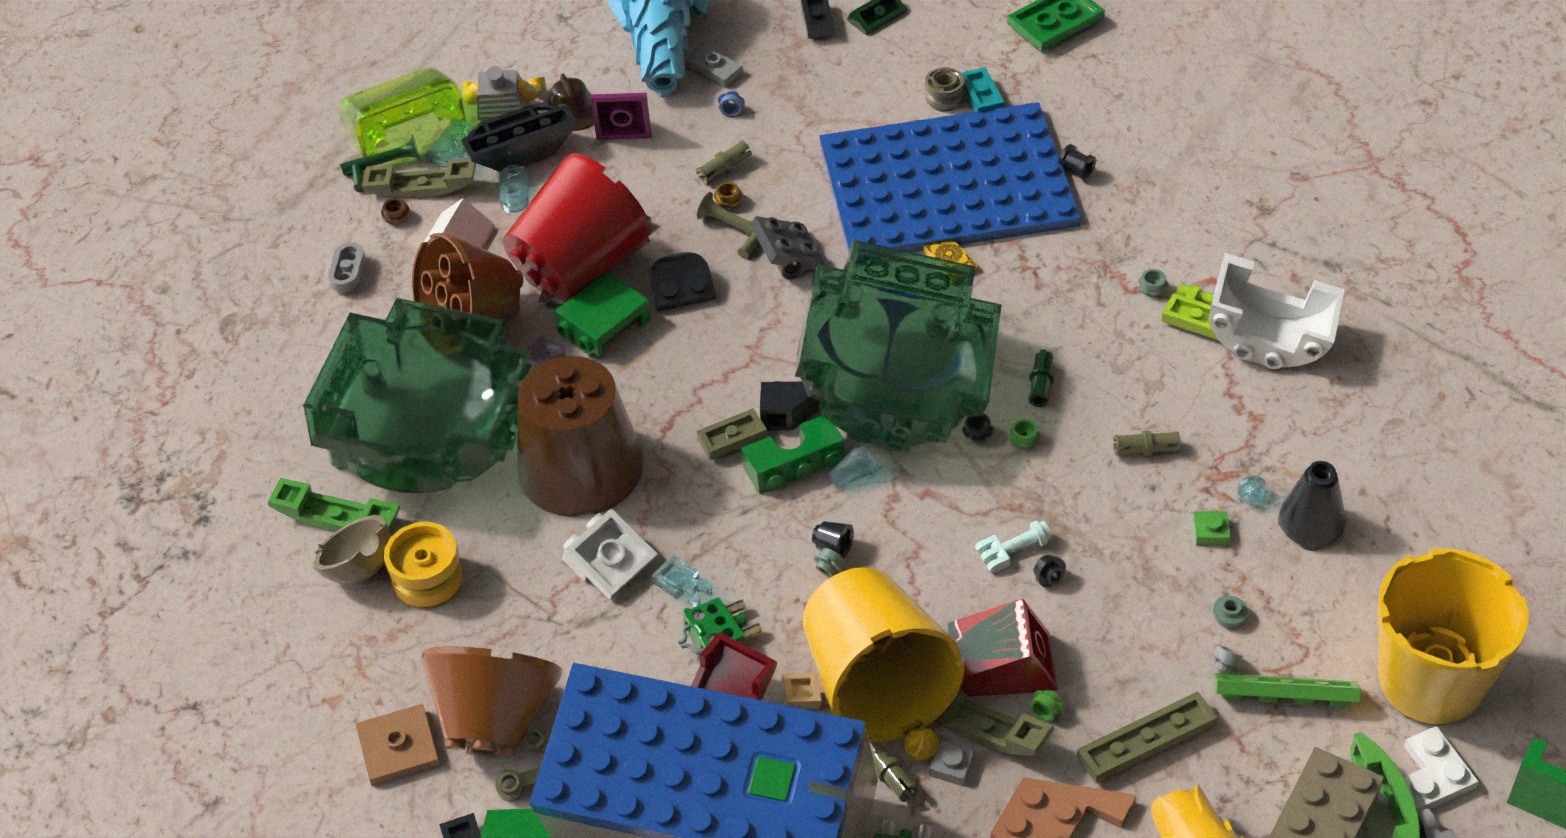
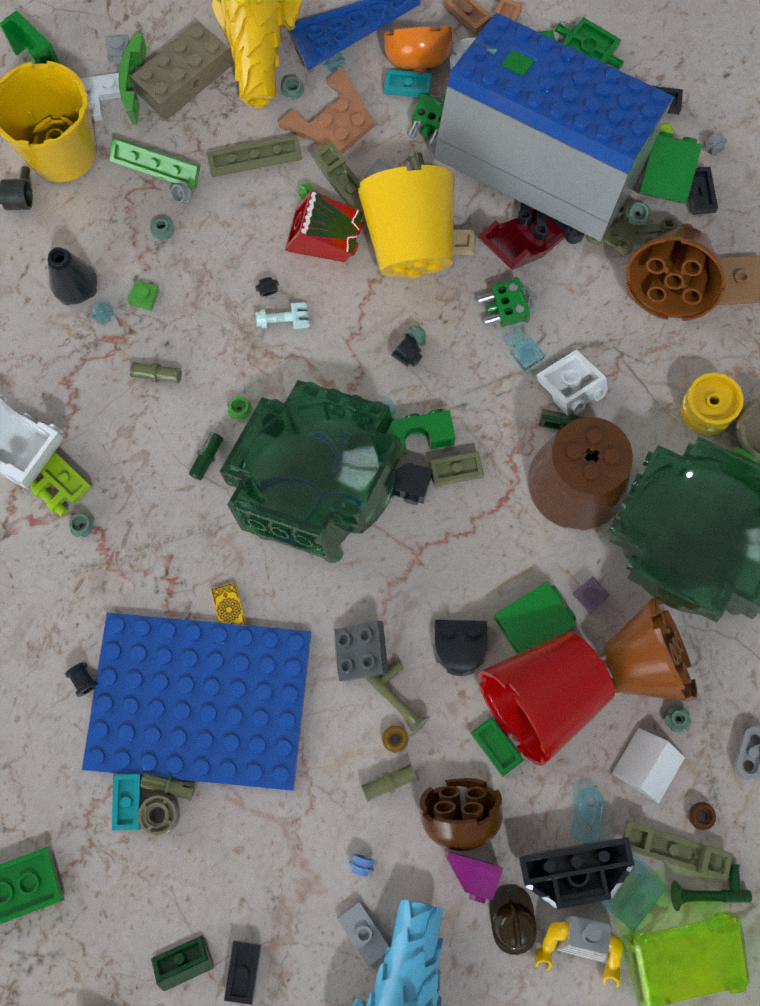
camera: 165 degrees left, 25 degrees up
(625, 505) = (555, 419): none -> dark green slope
(658, 136) = (463, 826): none -> reddish brown cylinder
(946, 109) = (168, 786): none -> olive axle

